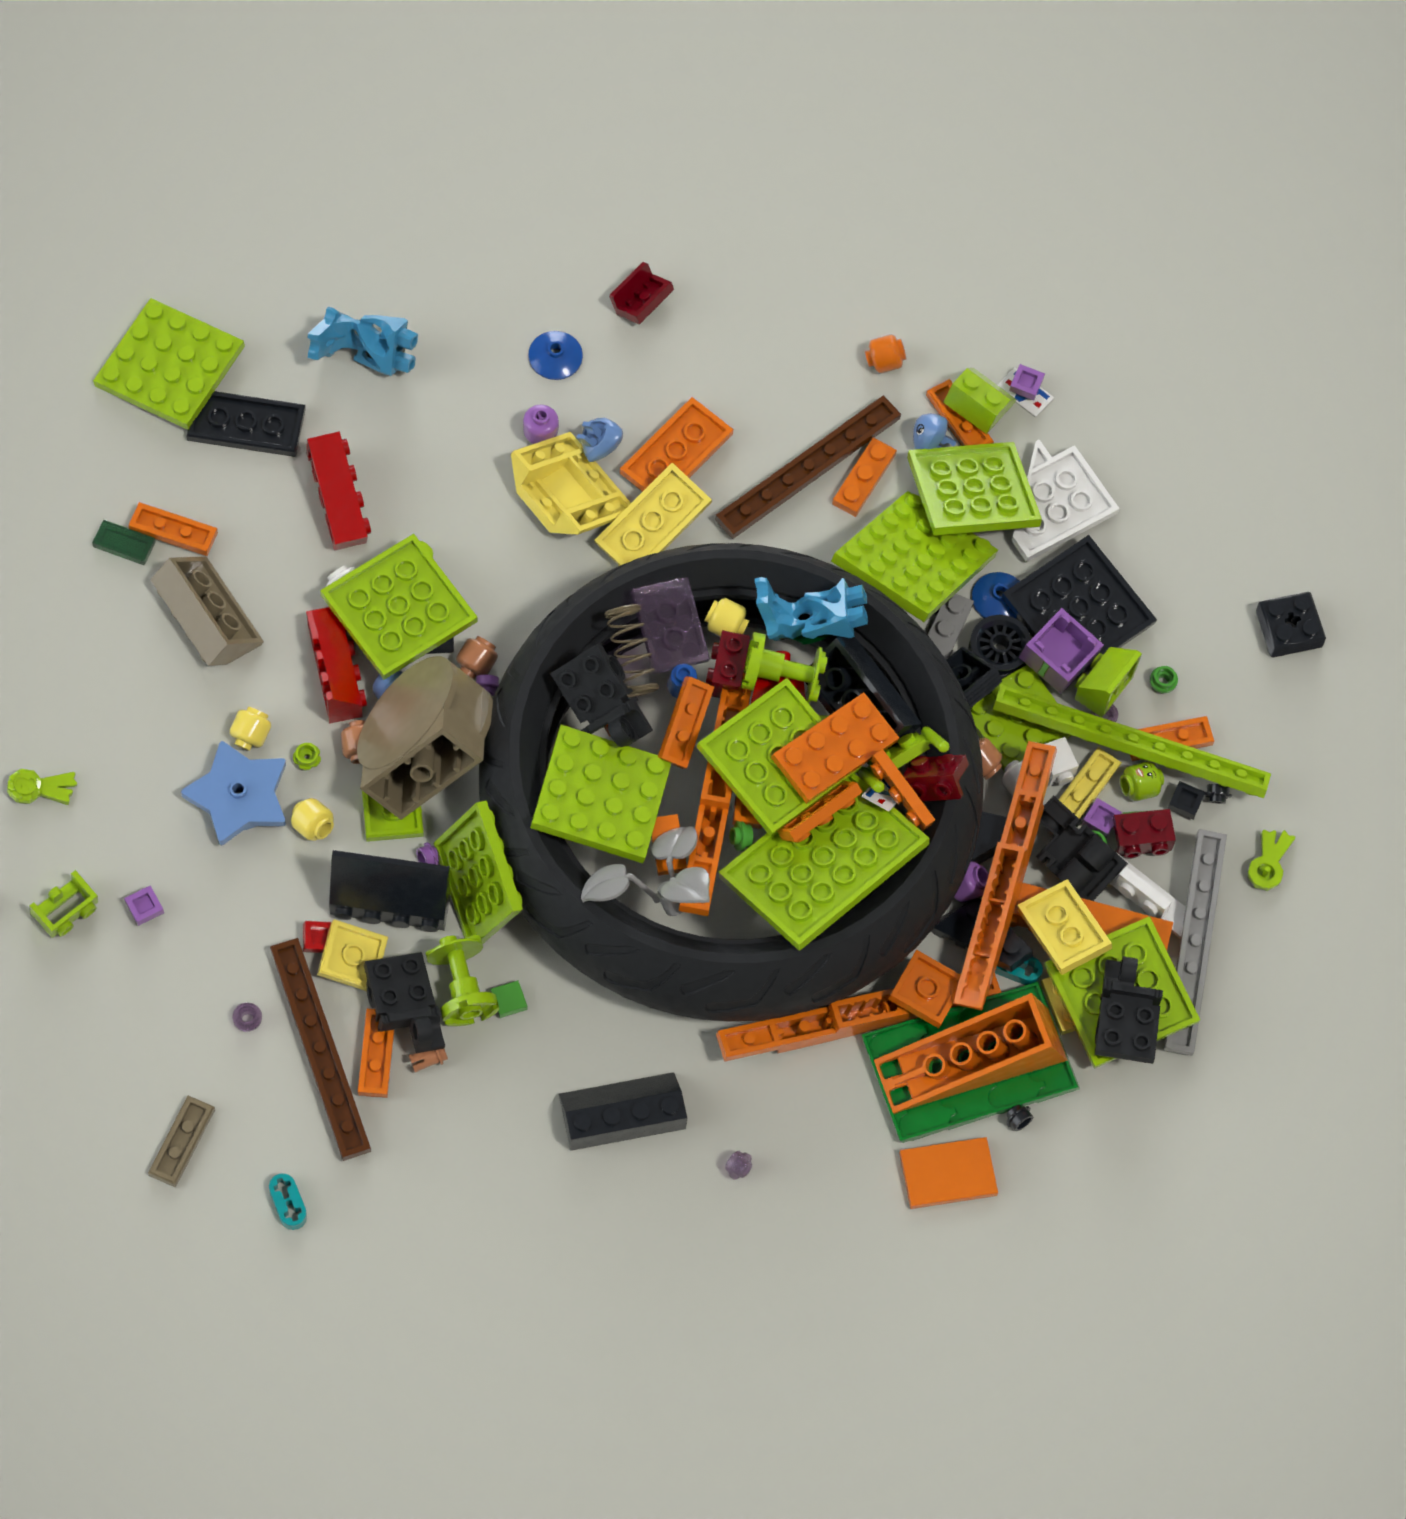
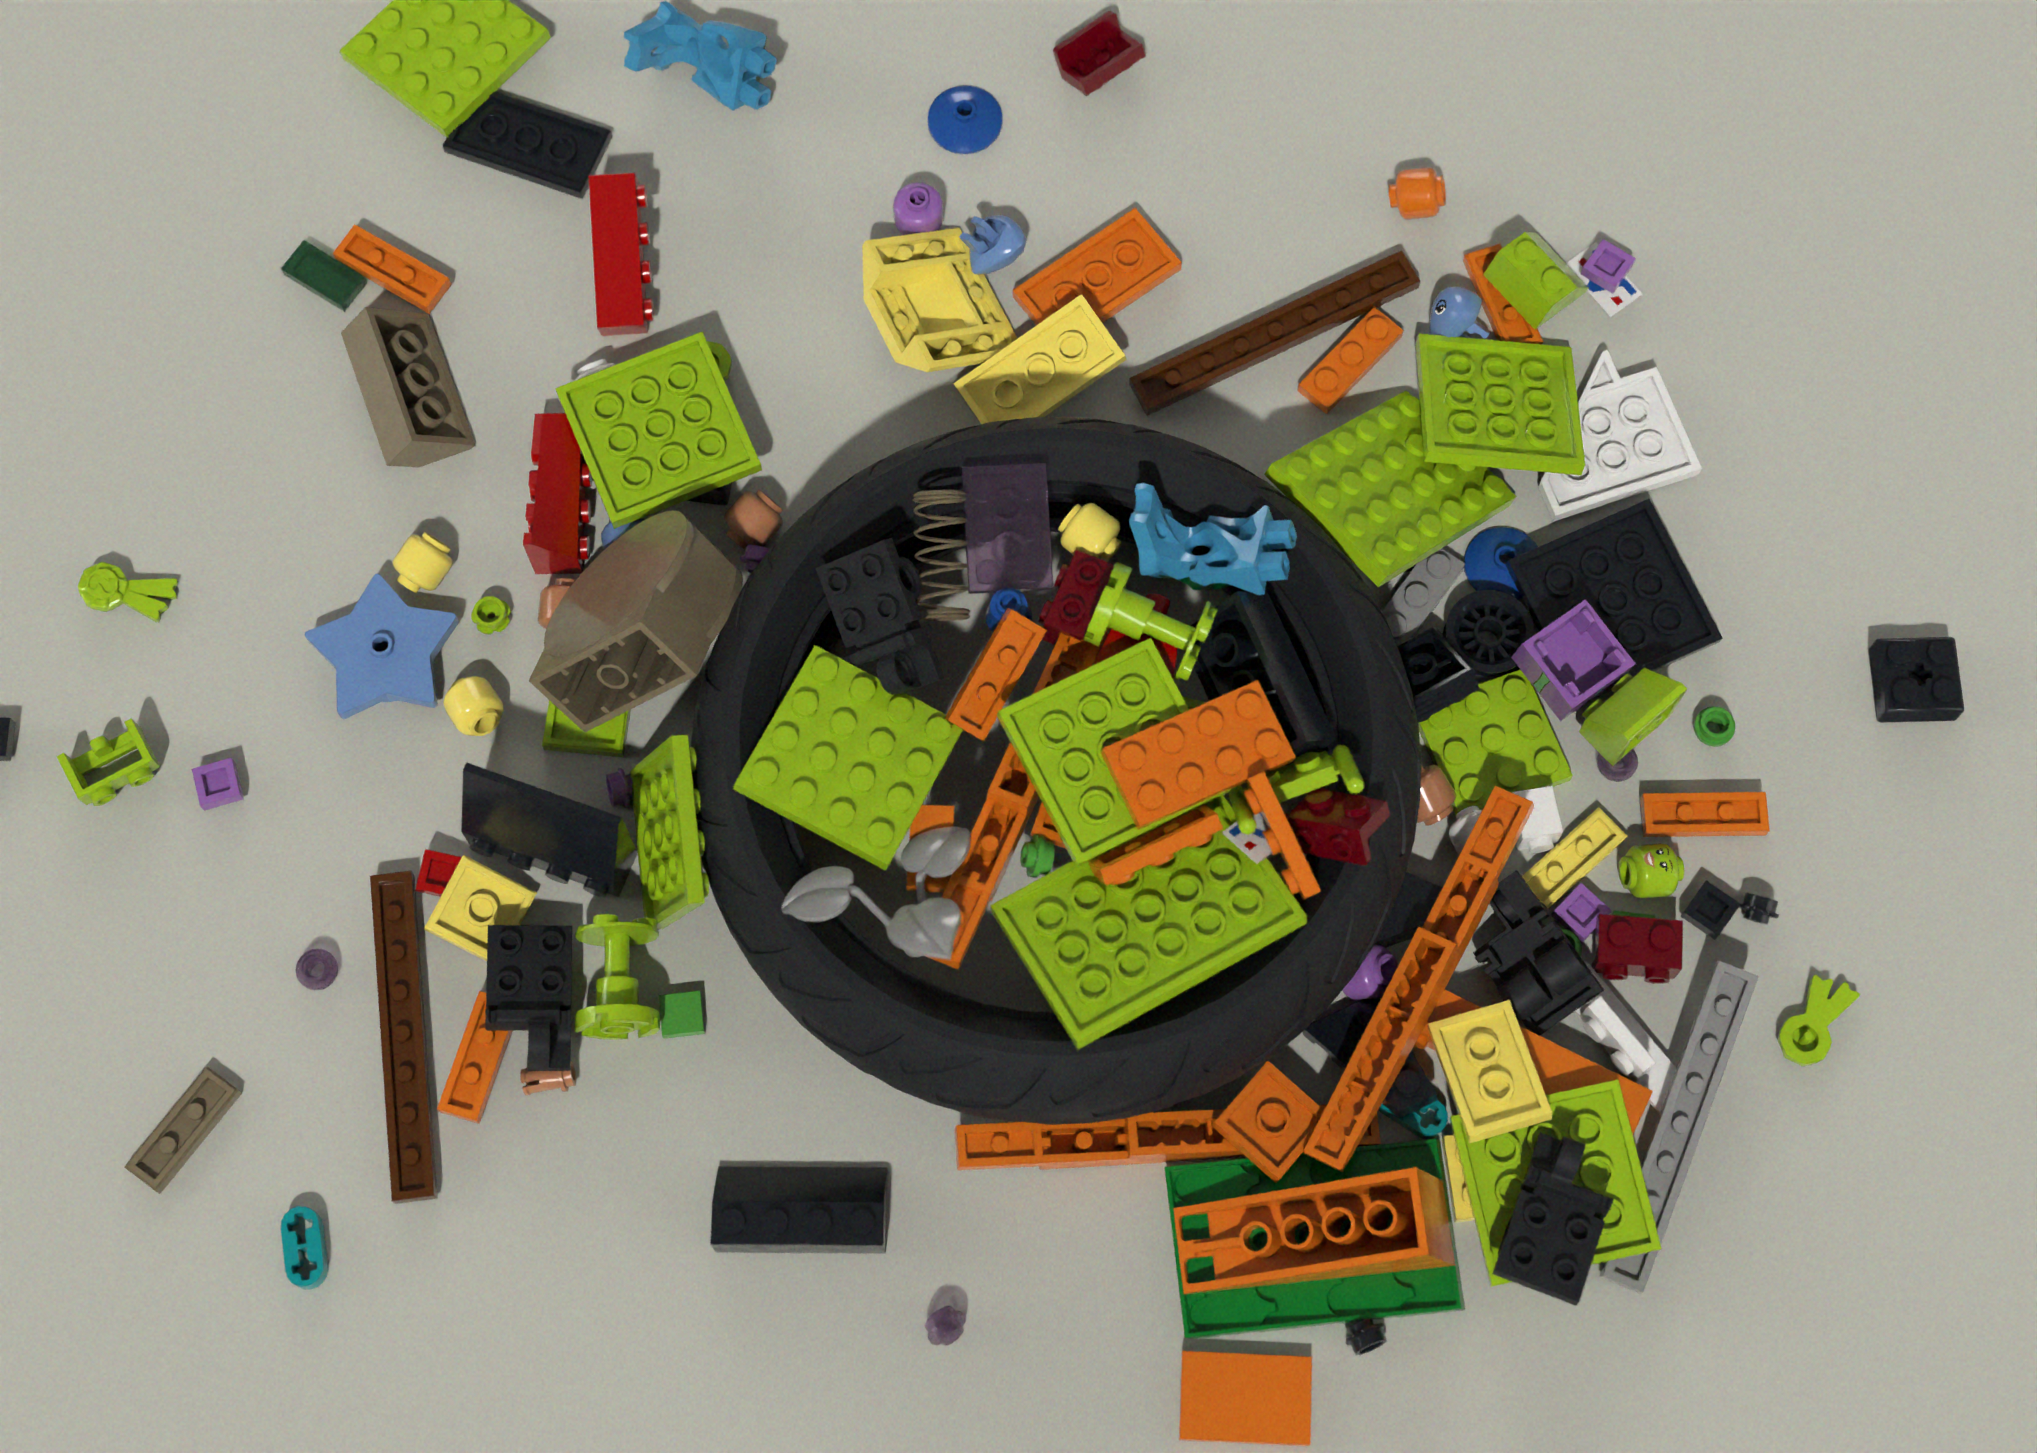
camera: 20 degrees right, 5 degrees up
(1132, 741) = (1650, 812): lime plate -> none

